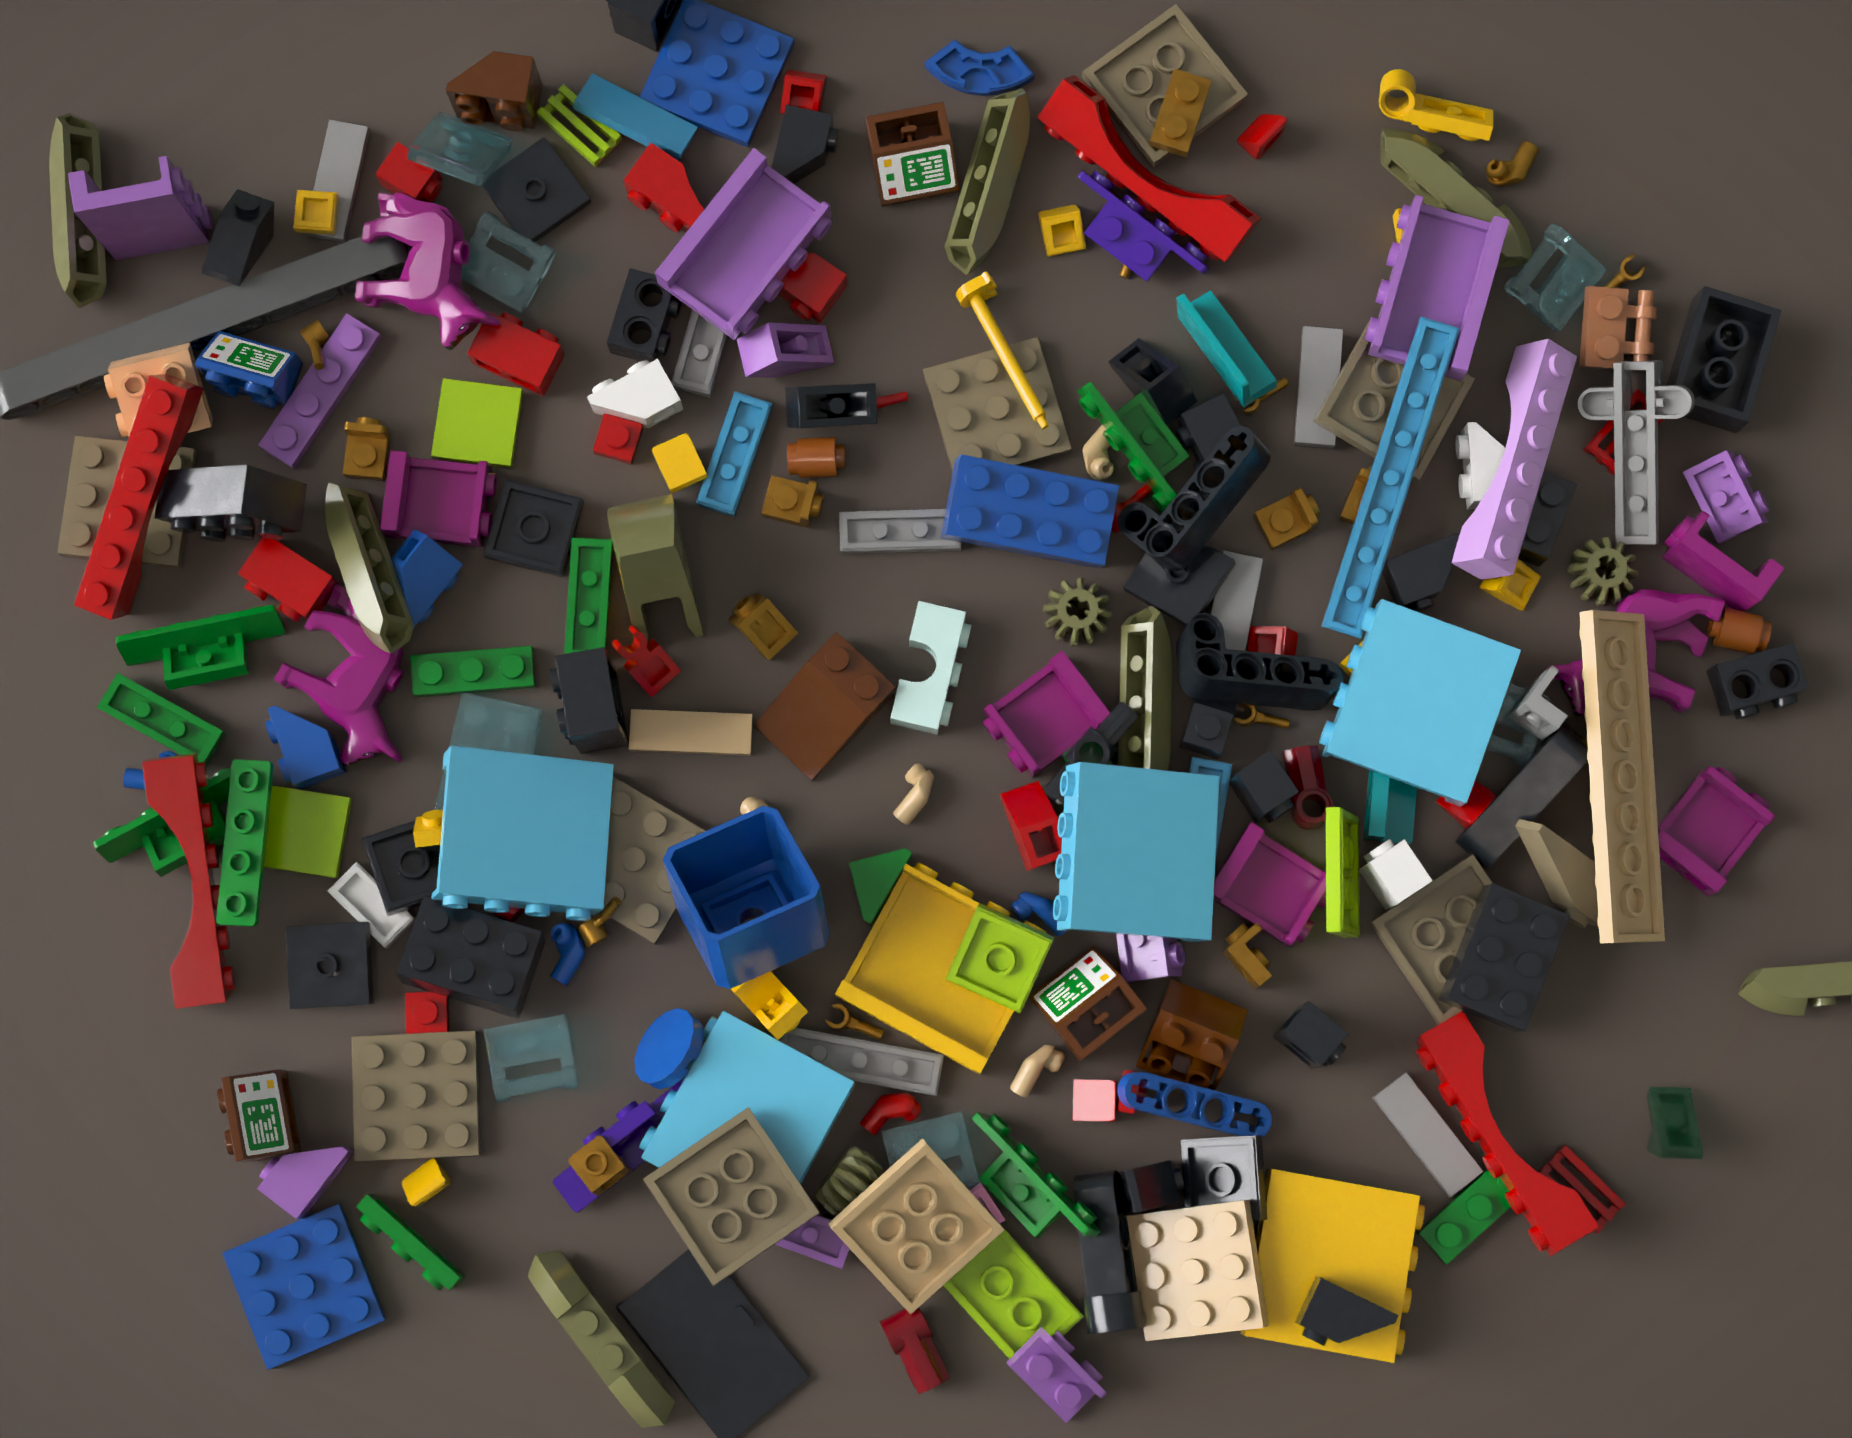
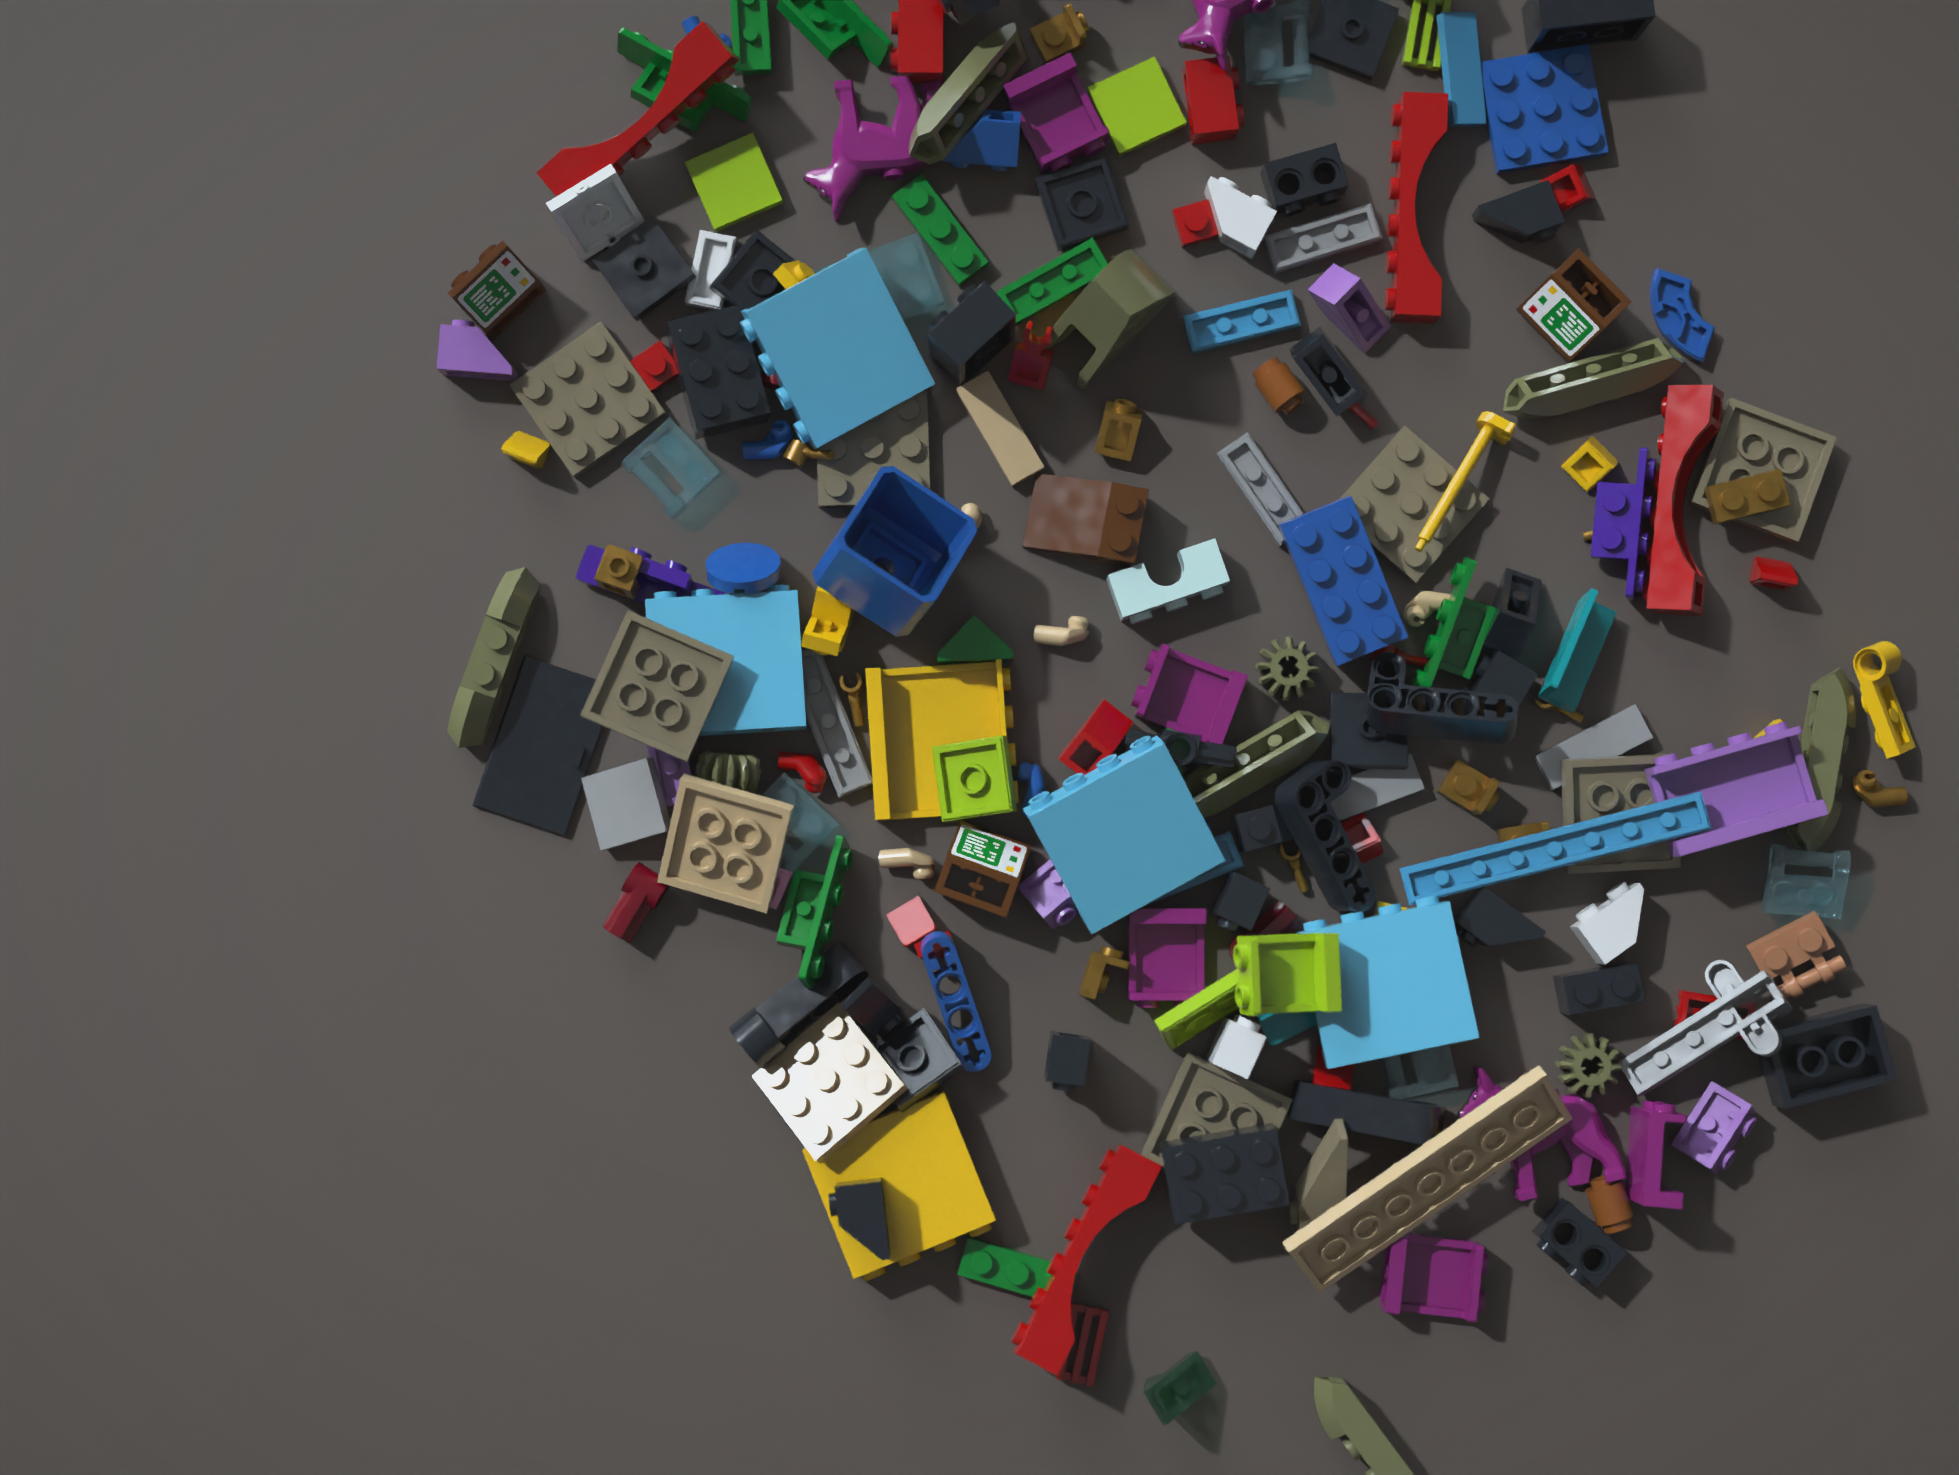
camera: 60 degrees right, 5 degrees up
(245, 843) = (693, 141): green bracket -> none
(248, 976) = (596, 212): none -> white plate
(304, 1286) = (393, 409): blue plate -> none
(307, 749) = (797, 143): blue slope -> none
(409, 1243) = (473, 466): green plate -> none
(679, 462) = (1206, 282): yellow slope -> none
(743, 246) = (1410, 219): medium lavender panel -> none
(792, 501) = (1232, 390): pearl gold bracket -> none
(818, 1298) = (626, 803): none -> light grey tile
(1011, 1295) = (719, 955): lime tile -> none
(1054, 1375) = (682, 1022): medium lavender bracket -> none
(1192, 1036) = (1008, 967): reddish brown slope -> none
(1359, 782) = (1288, 973): none -> lime panel
(1427, 1134) = (1049, 1198): light grey tile -> none
(1497, 527) = (1569, 958): lavender arch -> none
(1515, 588) = (1533, 996): yellow slope -> none
(1537, 713) = (1435, 1080): light grey panel -> none
(1624, 274) = (1846, 936): pearl gold hand -> none

